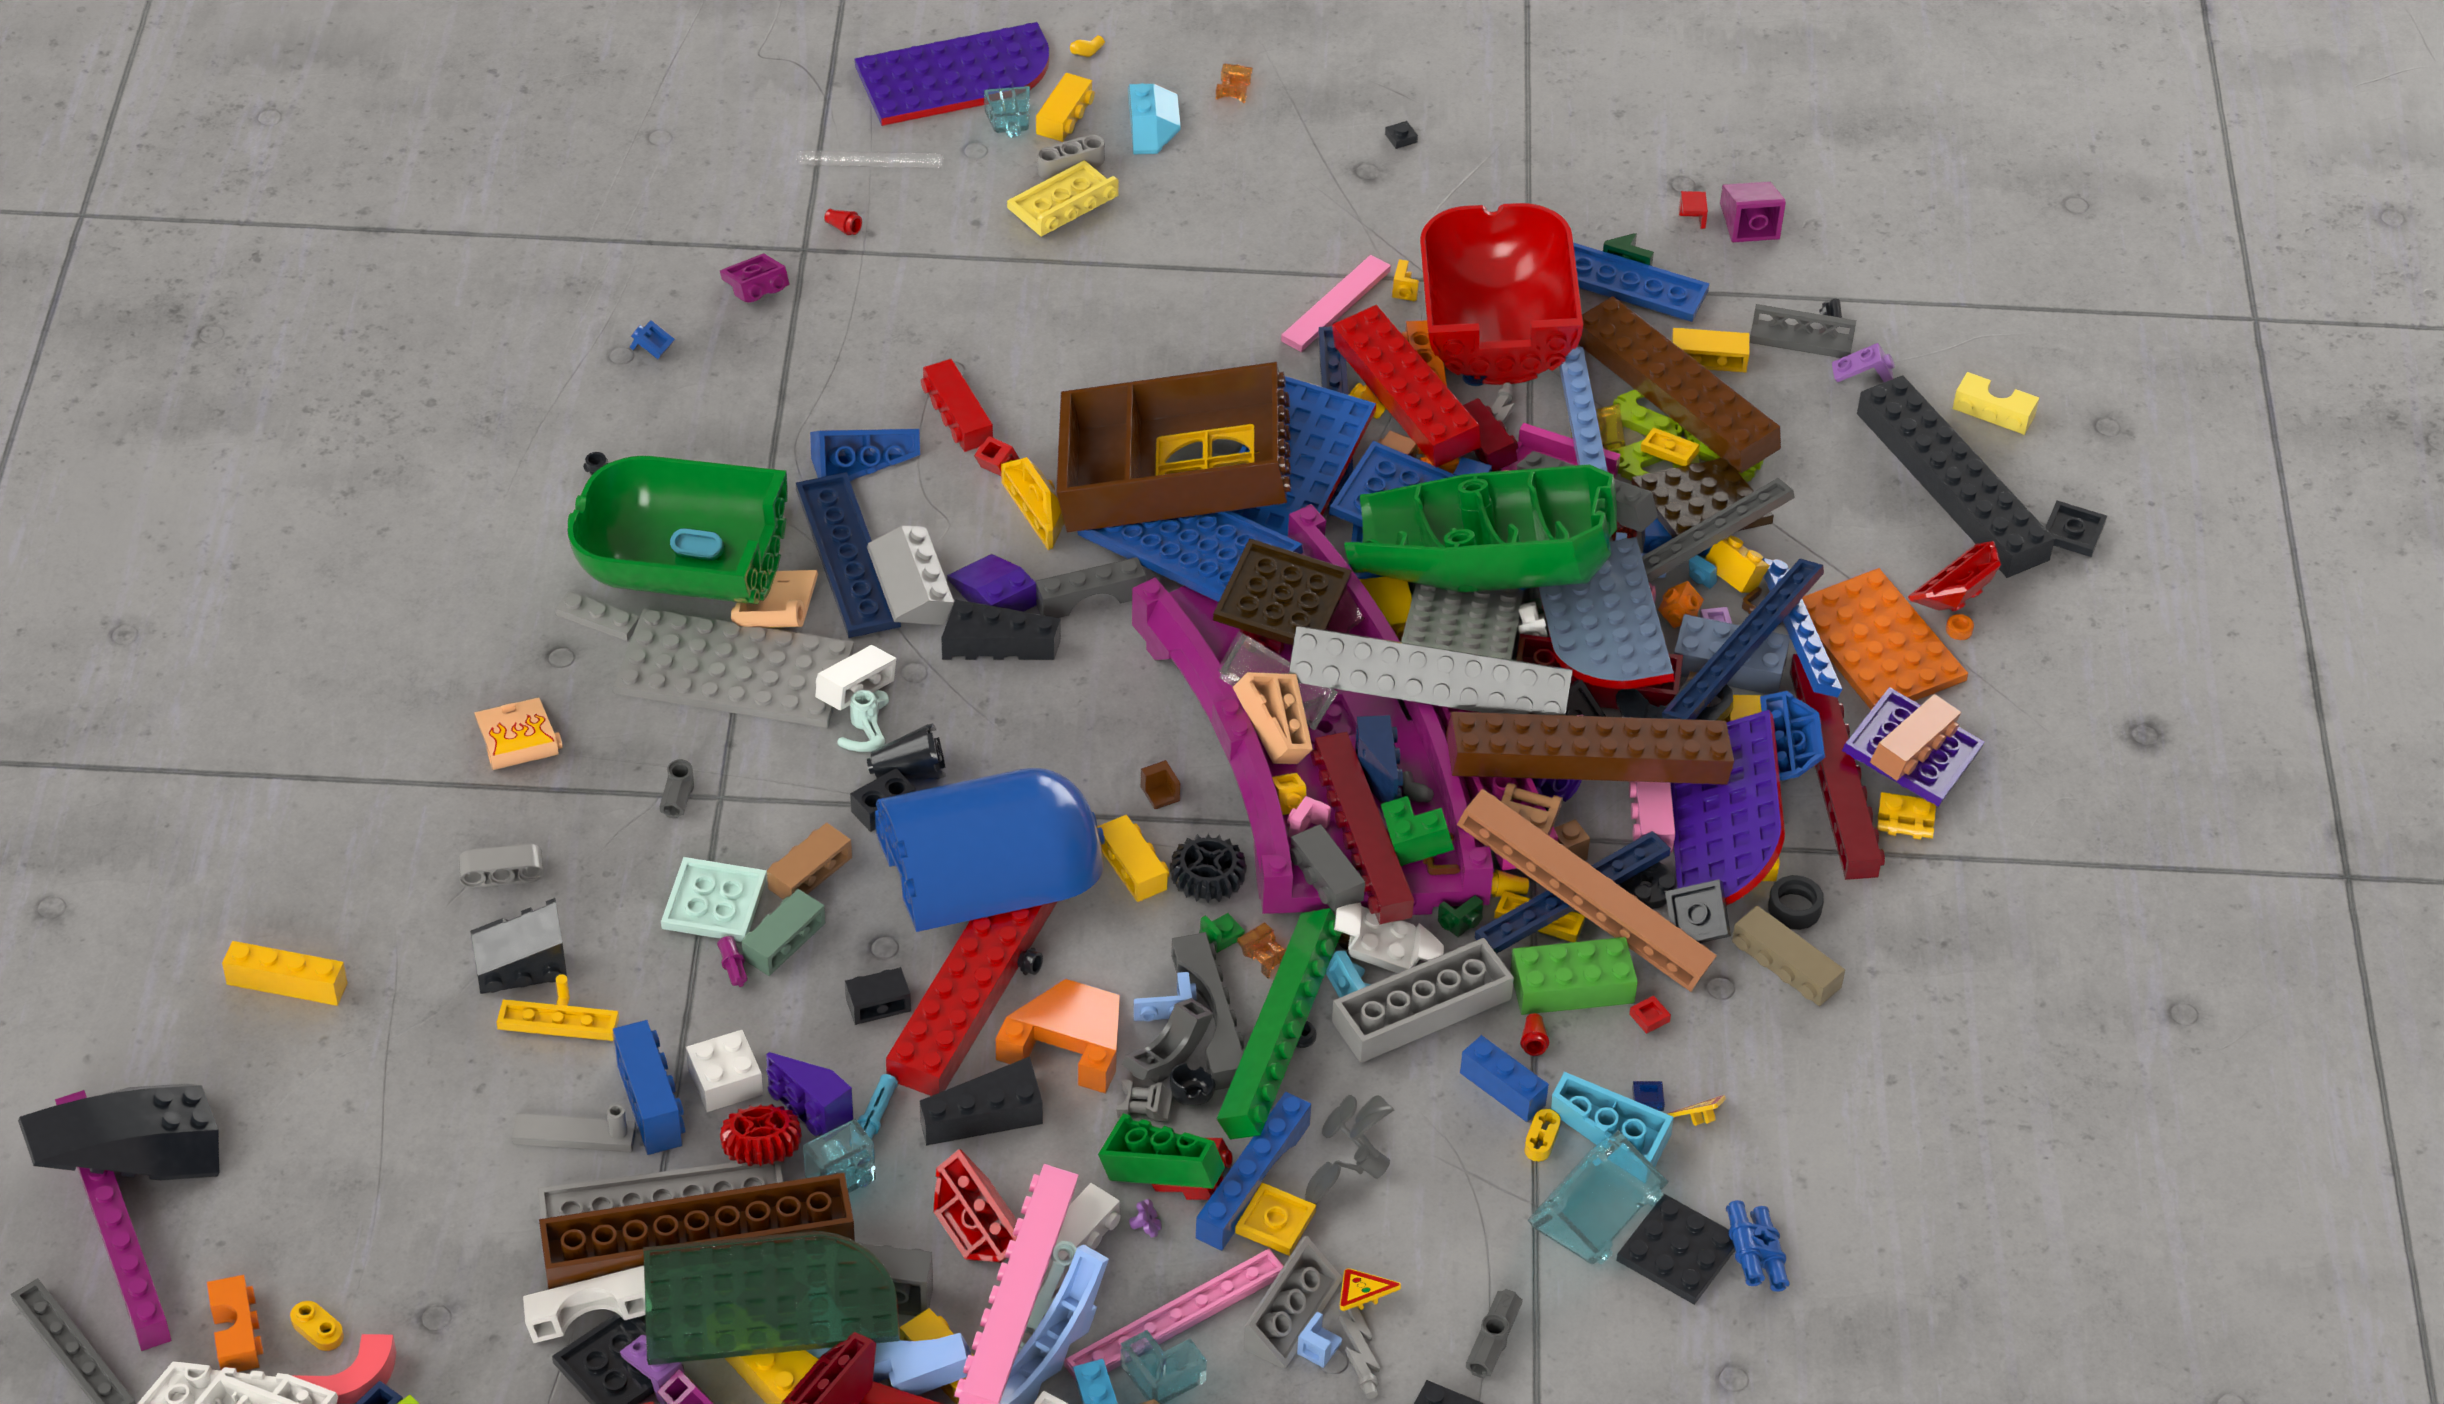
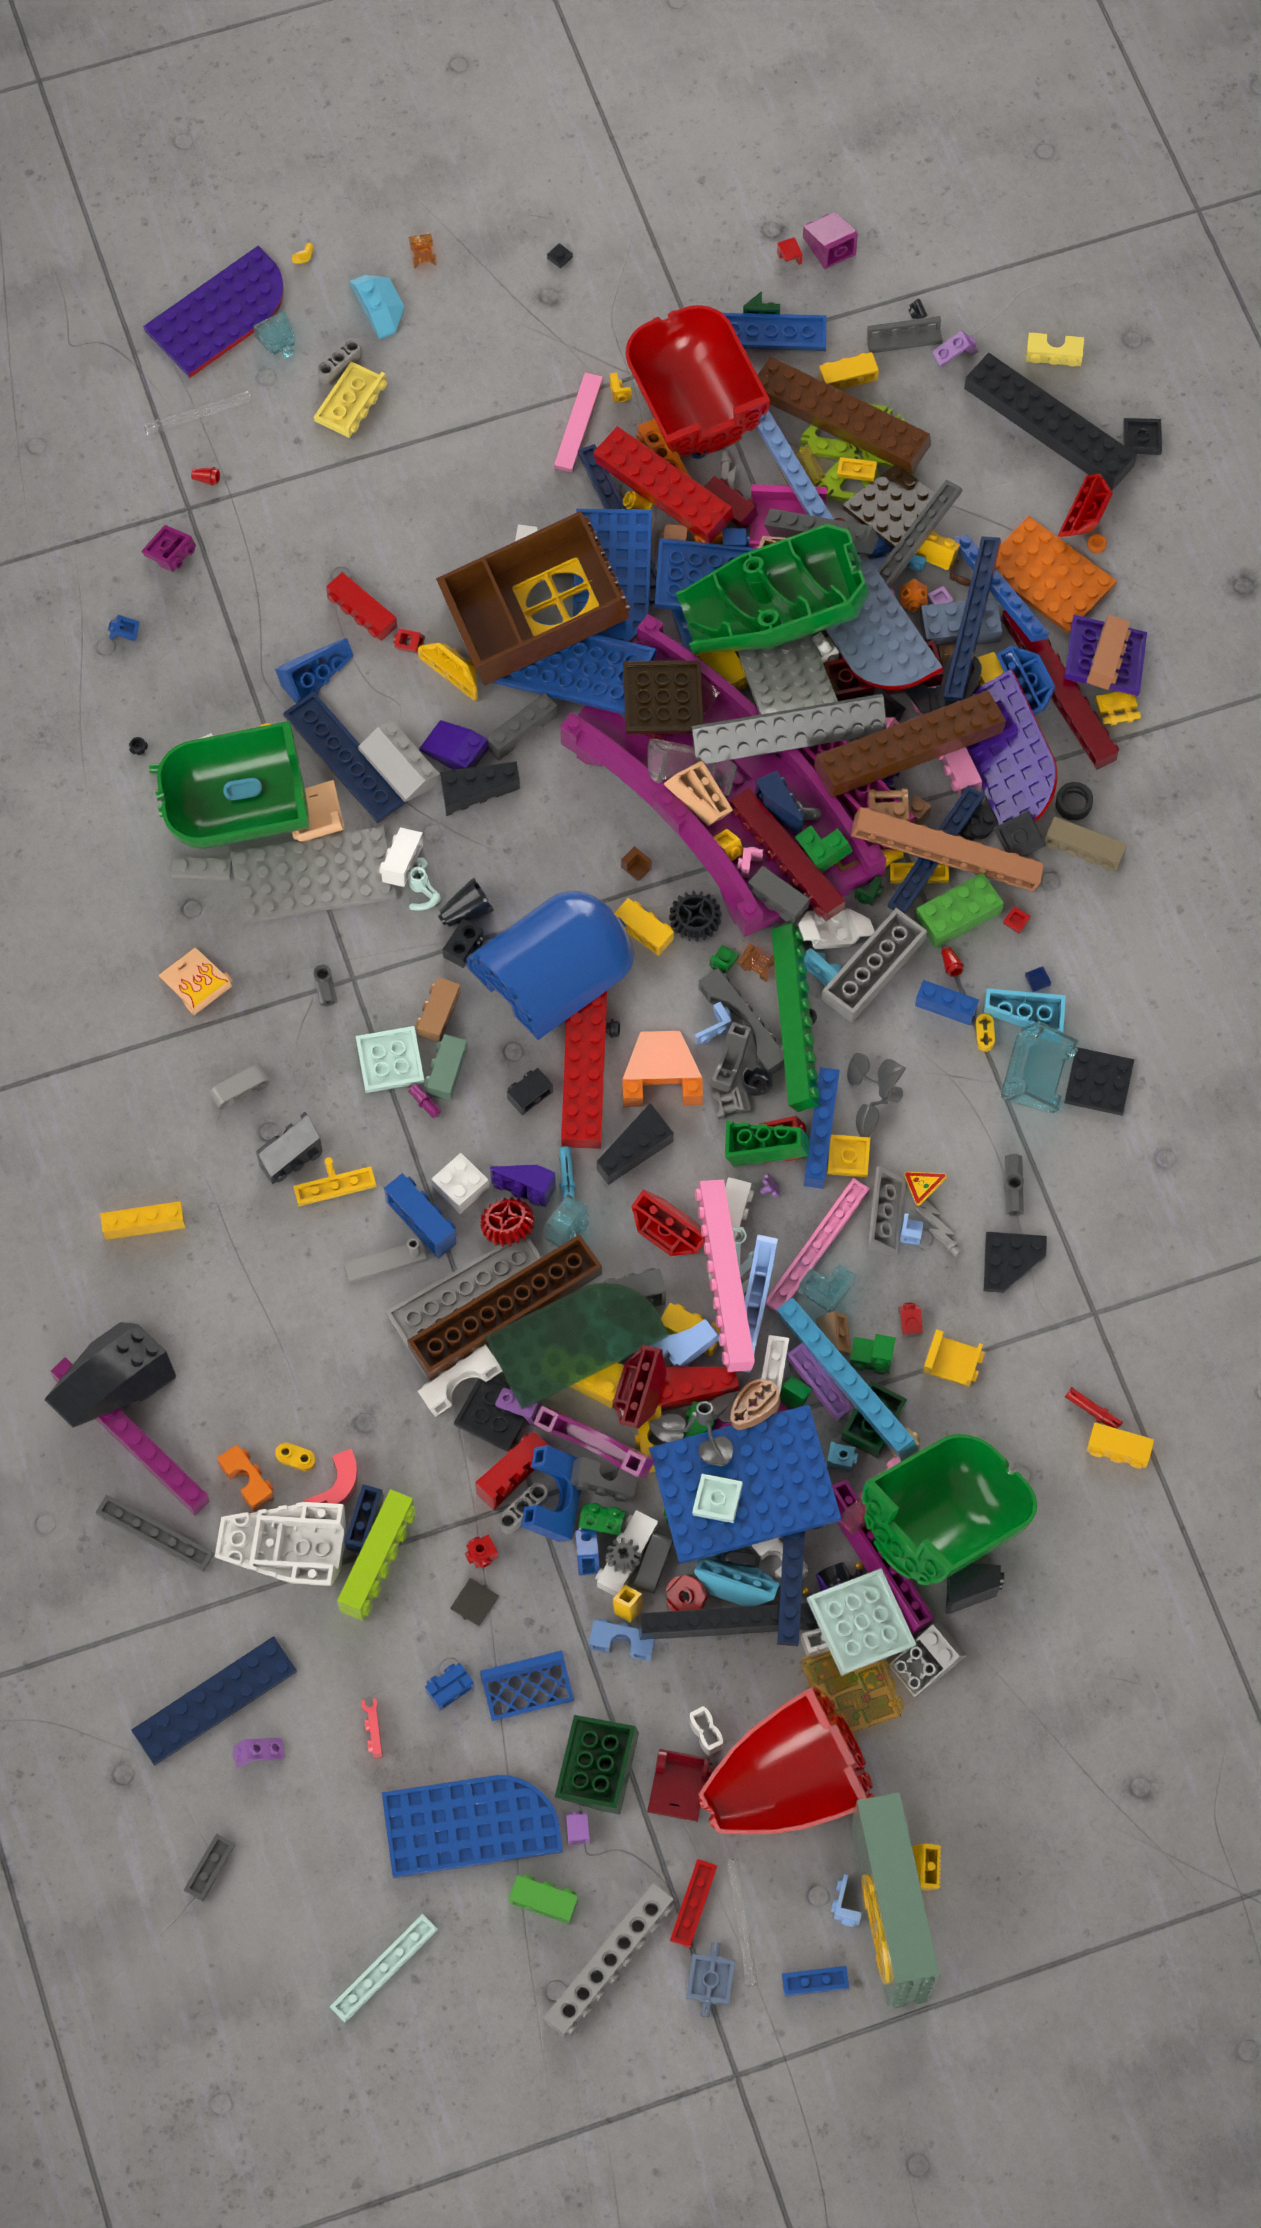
camera: 20 degrees left, 20 degrees up
(1064, 107) = (315, 317): yellow brick -> none
(1696, 1109) = (1074, 977): yellow piece -> none
(1757, 1246) = (1147, 1063): blue pin -> none

